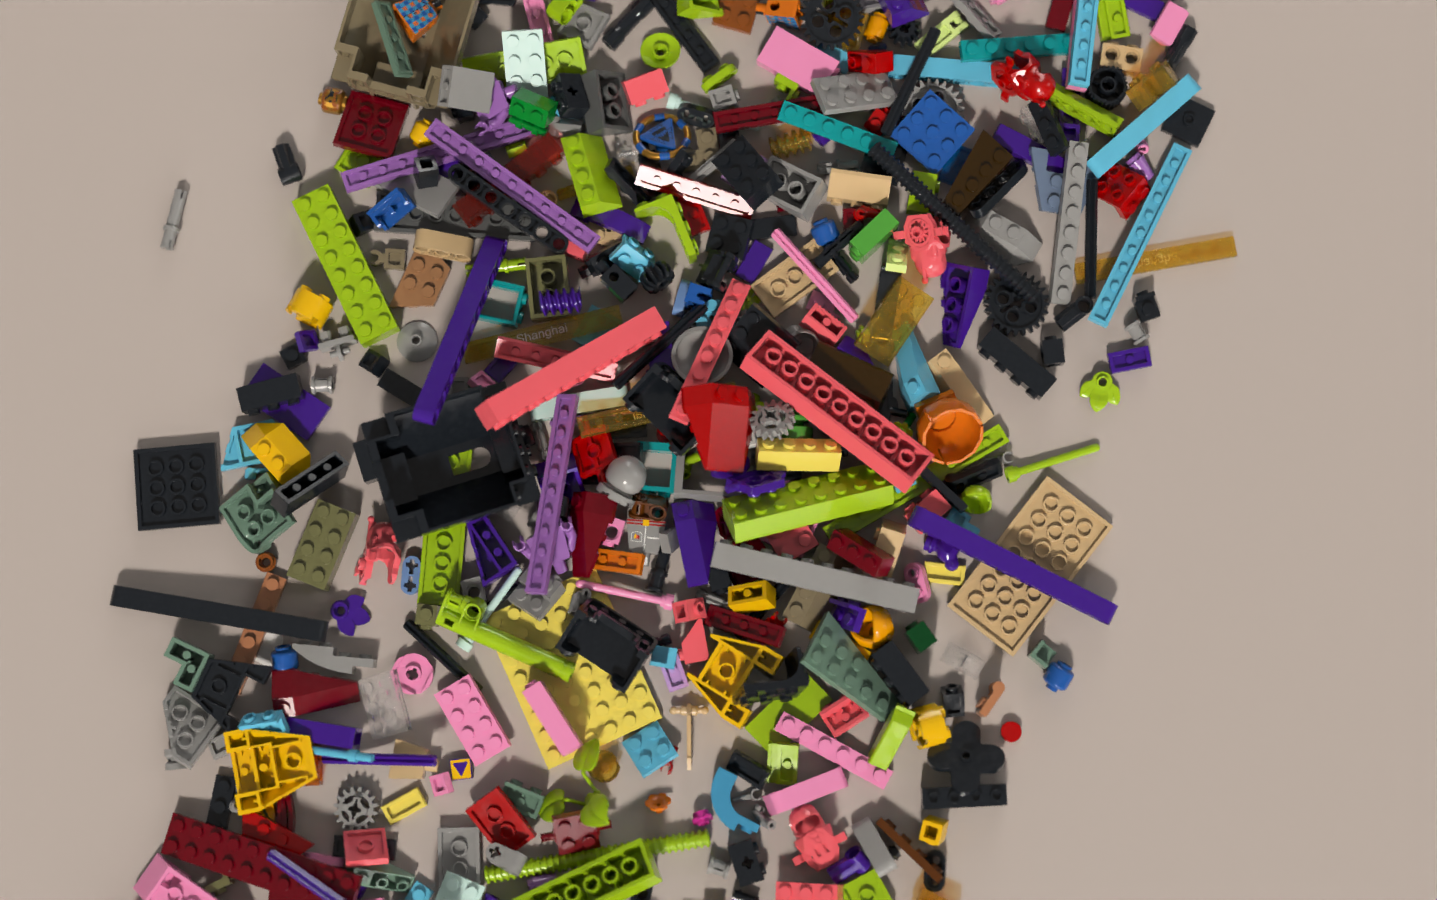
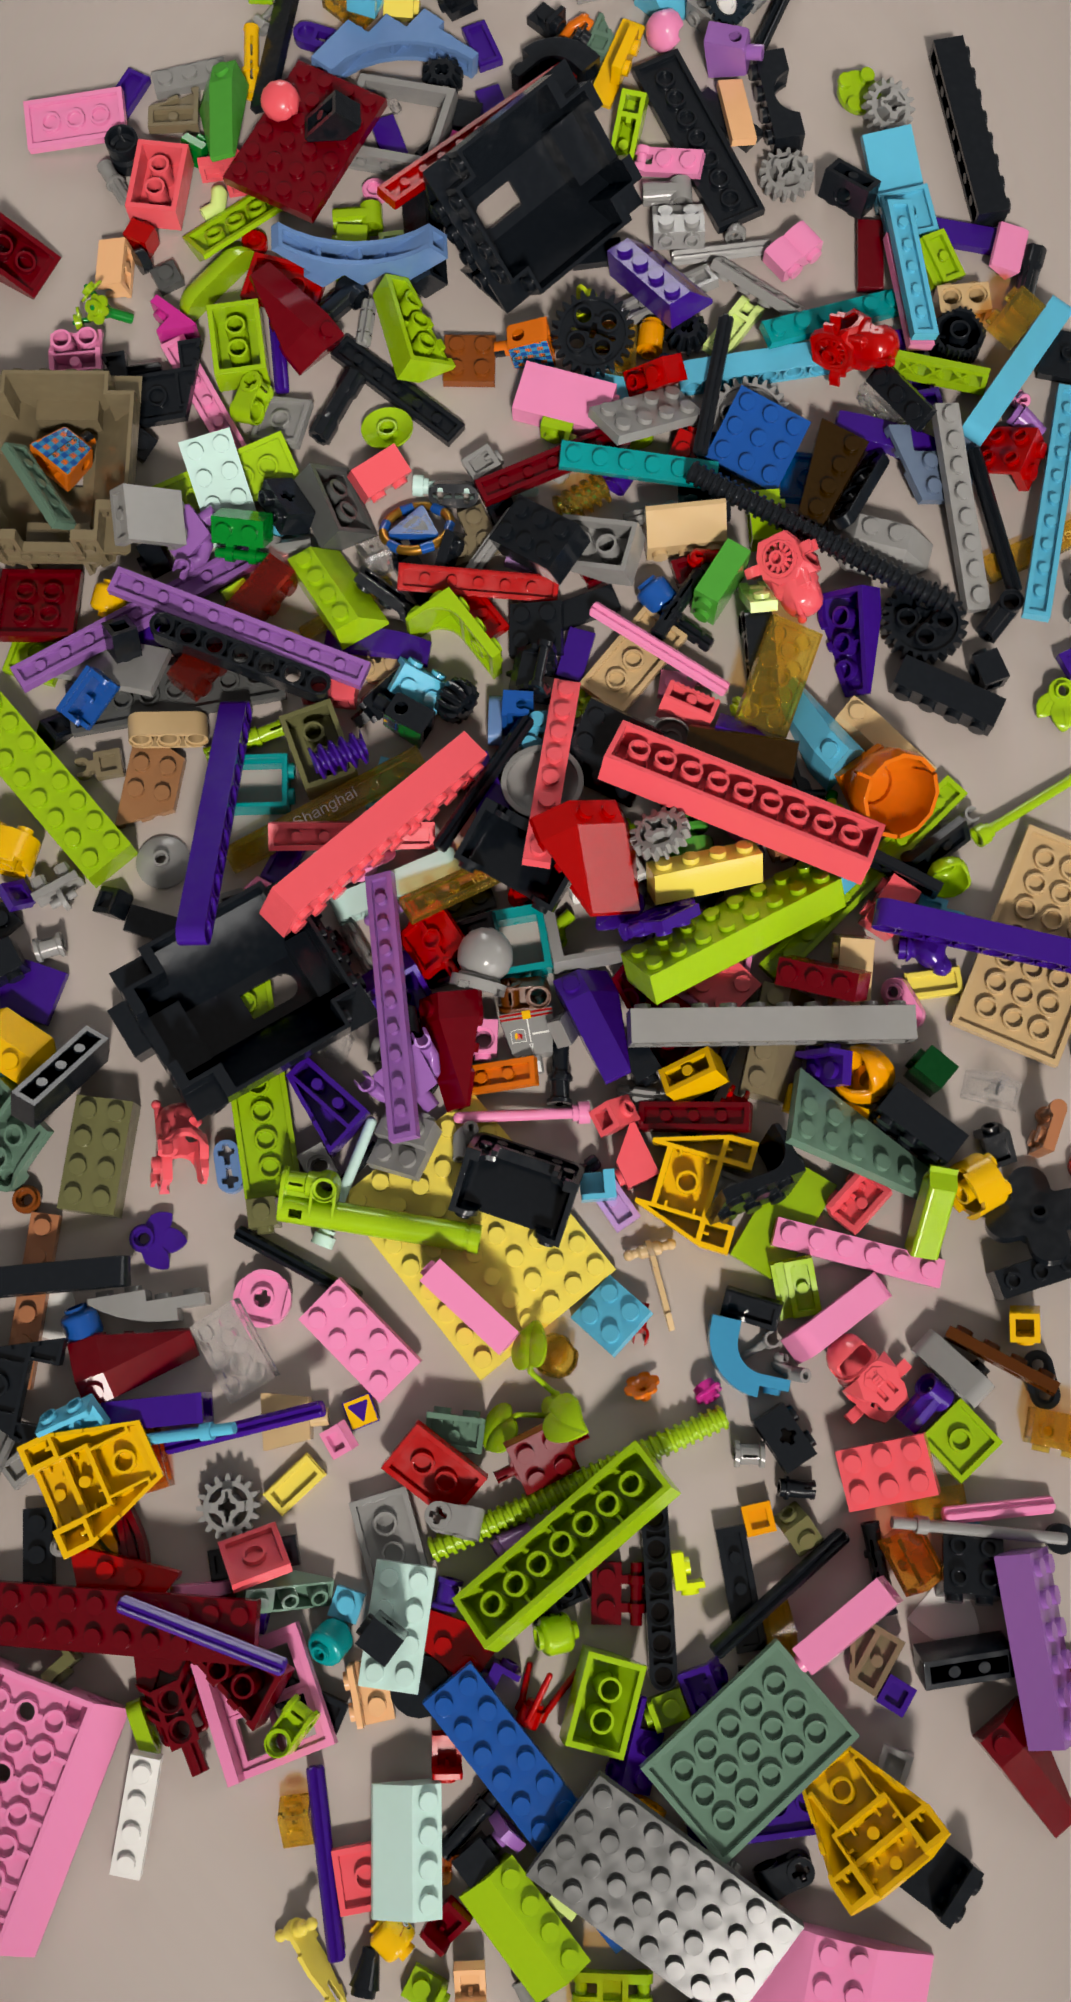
camera: 20 degrees left, 5 degrees down
(725, 72) = (474, 439): lime plate -> none

